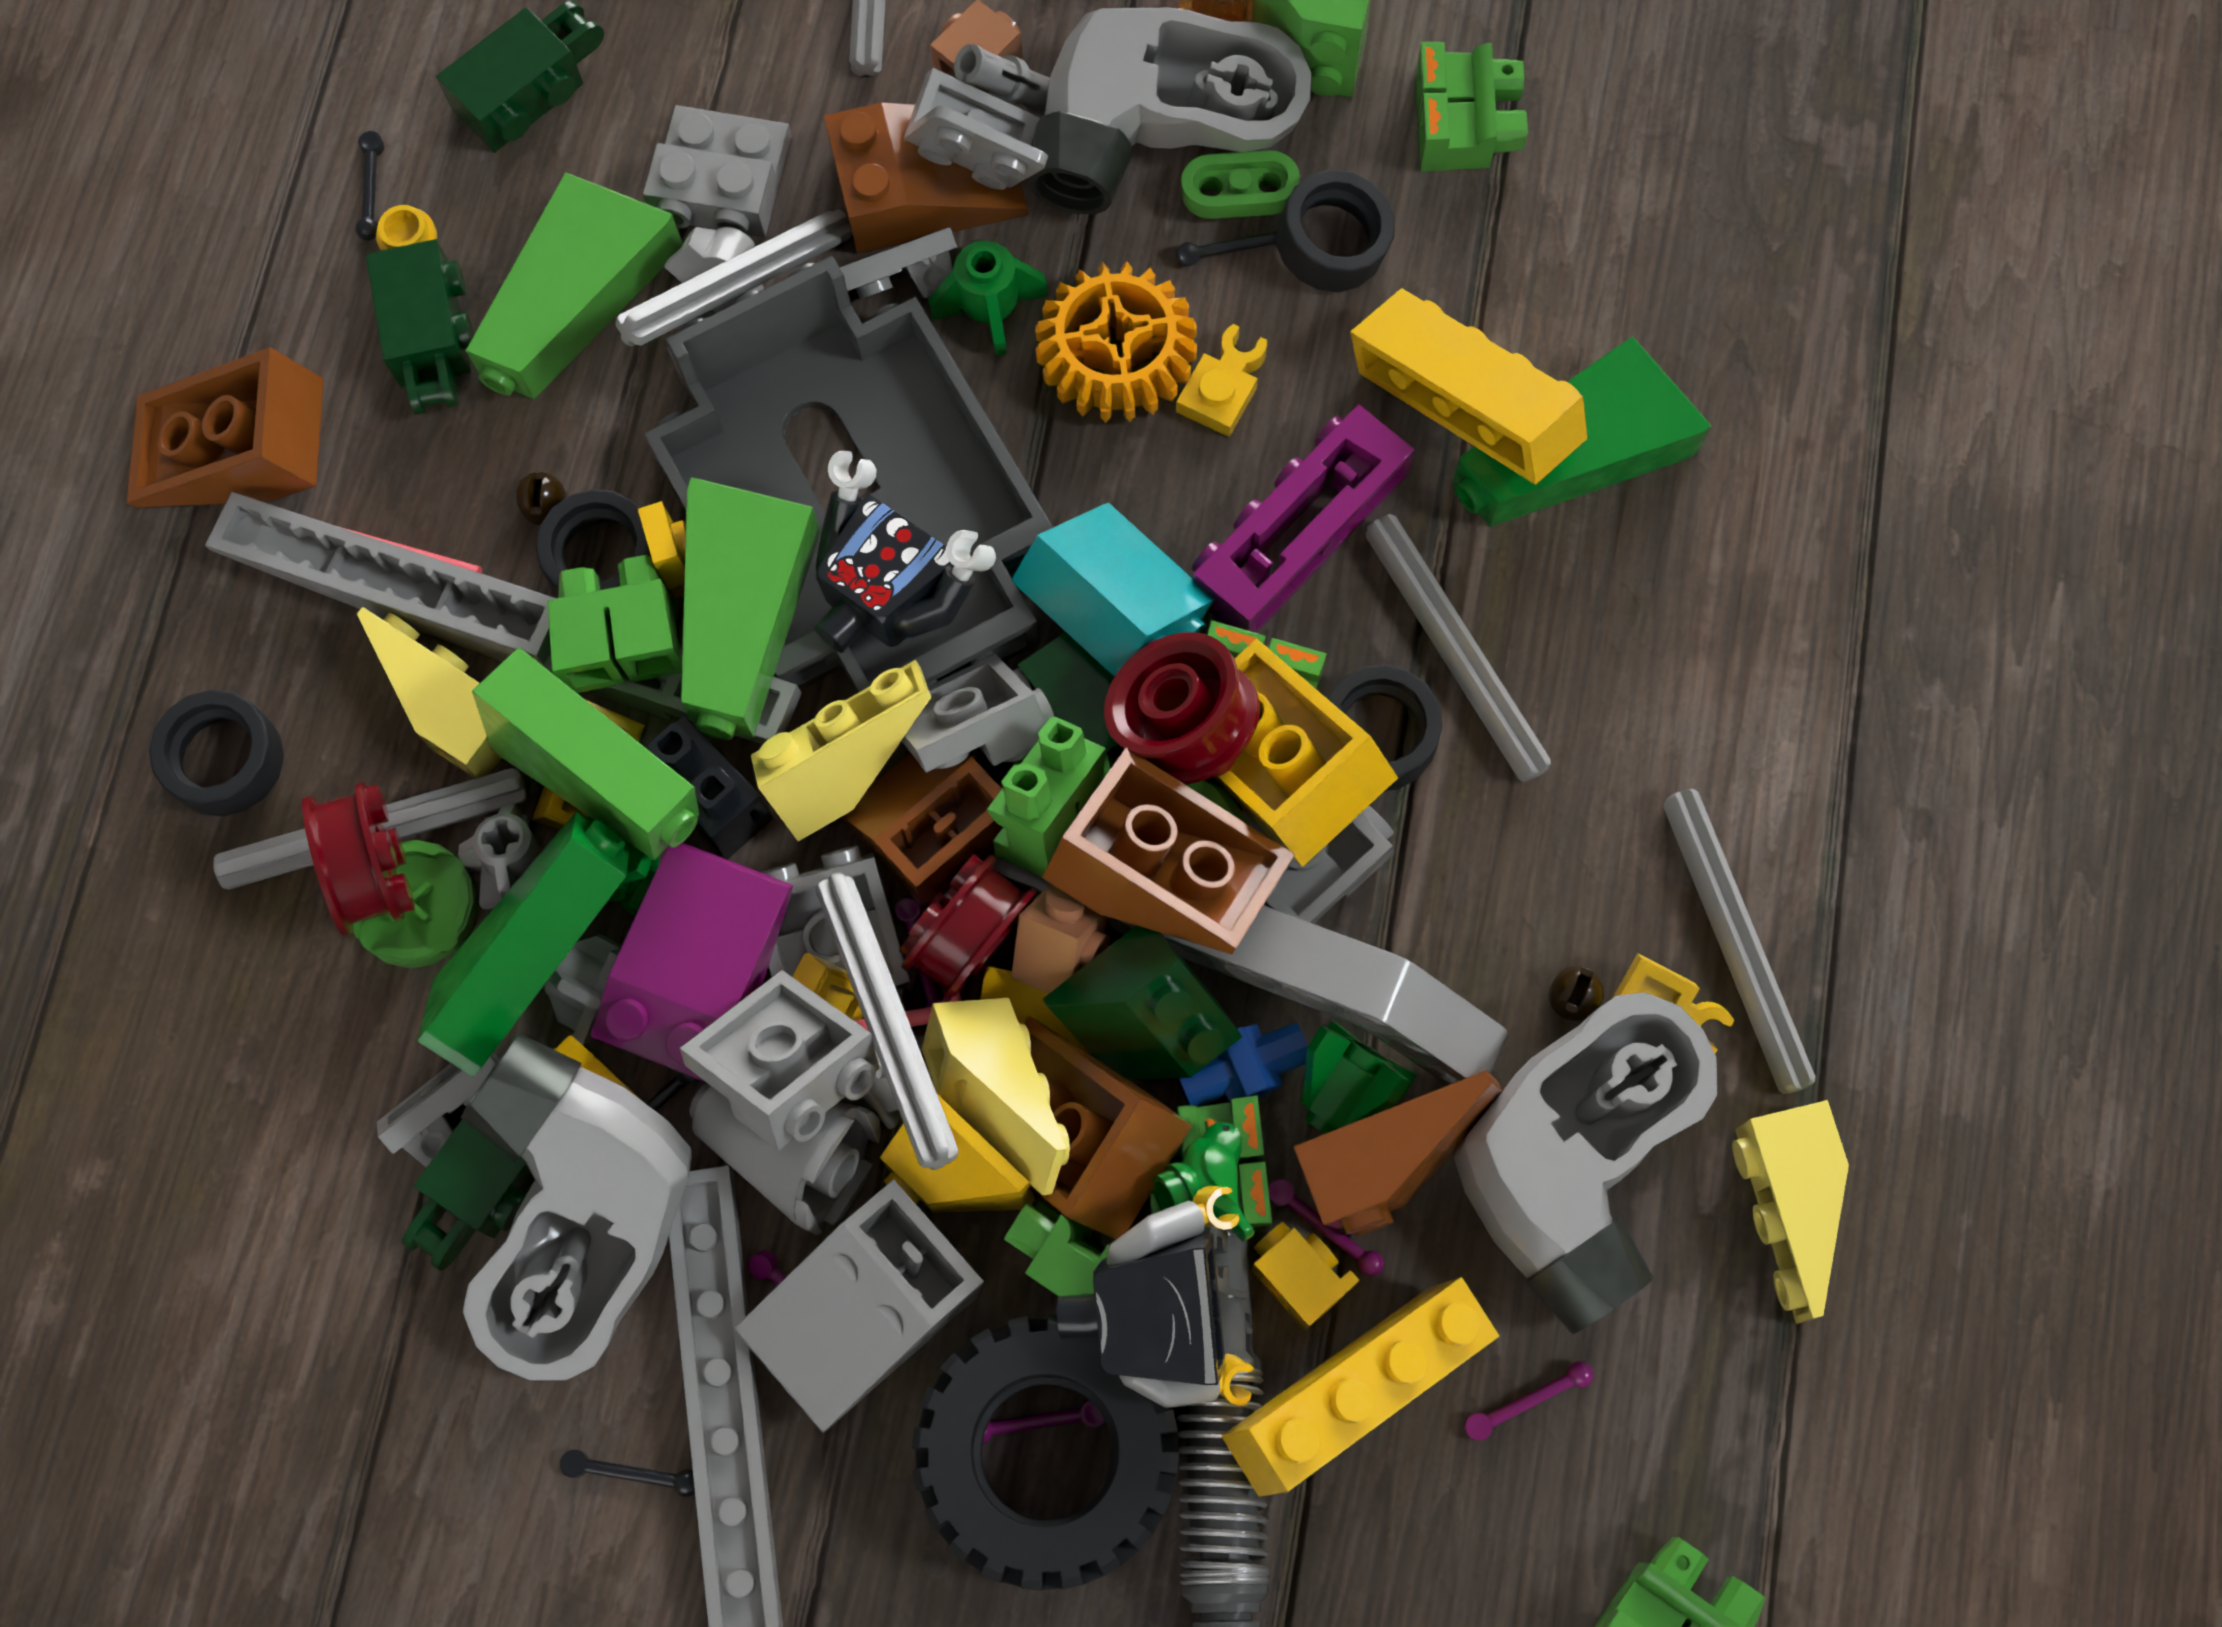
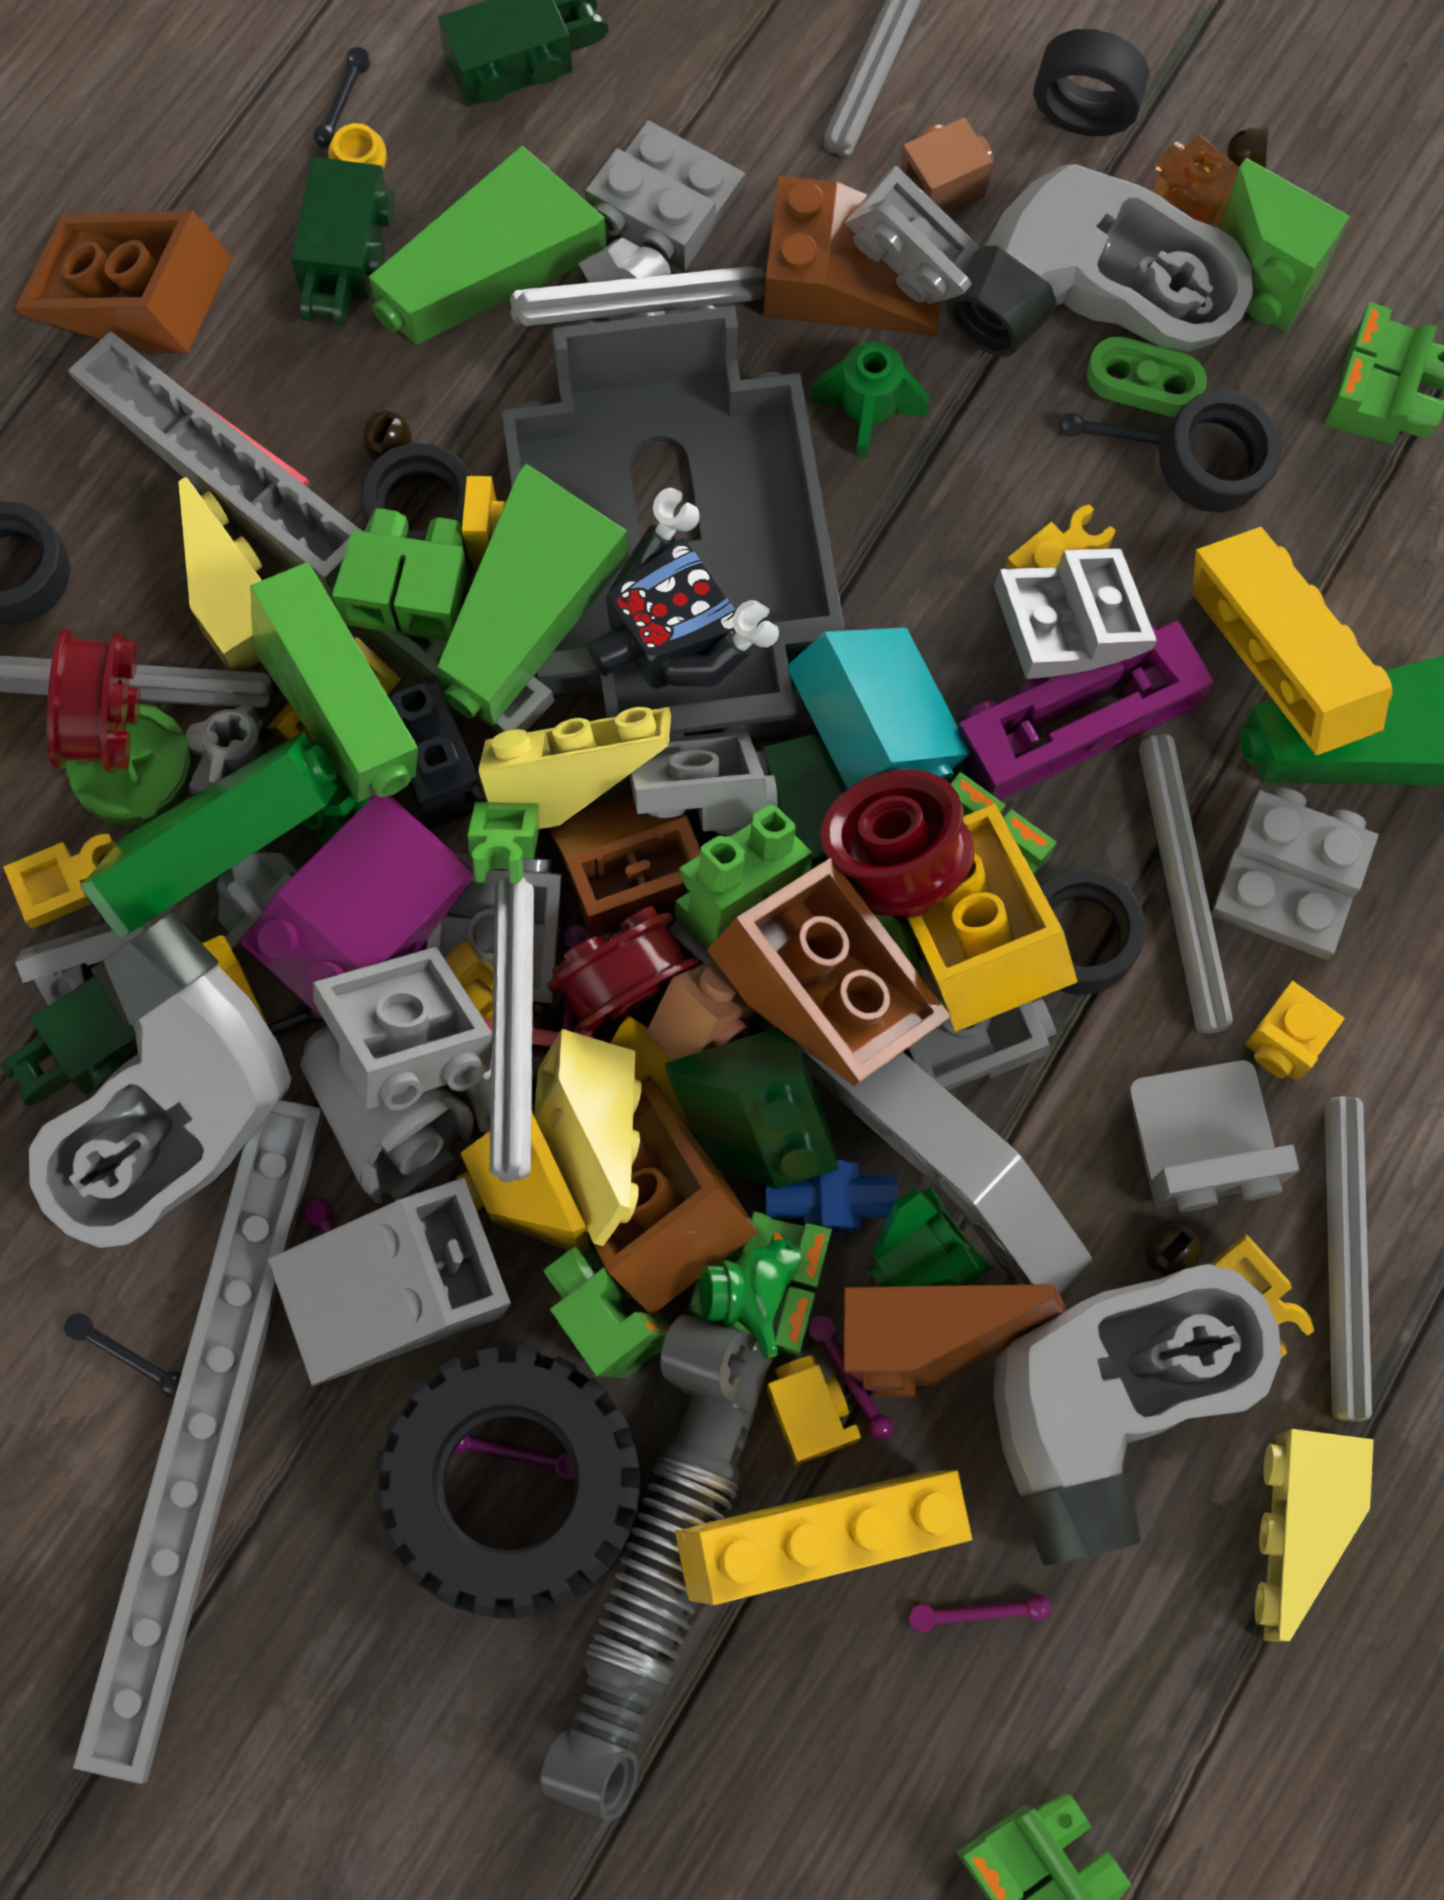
camera: 15 degrees right, 0 degrees up
(383, 1043) = (51, 879): none -> yellow plate
(805, 842) = (502, 837): none -> bright green plate
(924, 259) = (822, 340): light grey hinge -> none
(1002, 76) = (960, 198): light grey pin -> none
(1158, 327) = (1018, 483): light orange gear -> none
(1161, 1308) = (661, 1389): black torso -> none
(1260, 432) = (1074, 613): none -> light grey slope
(1553, 599) = (1294, 872): none -> light grey plate
(1569, 876) = (1208, 1136): none -> light grey bracket
(1609, 750) = (1293, 1033): none -> yellow bracket

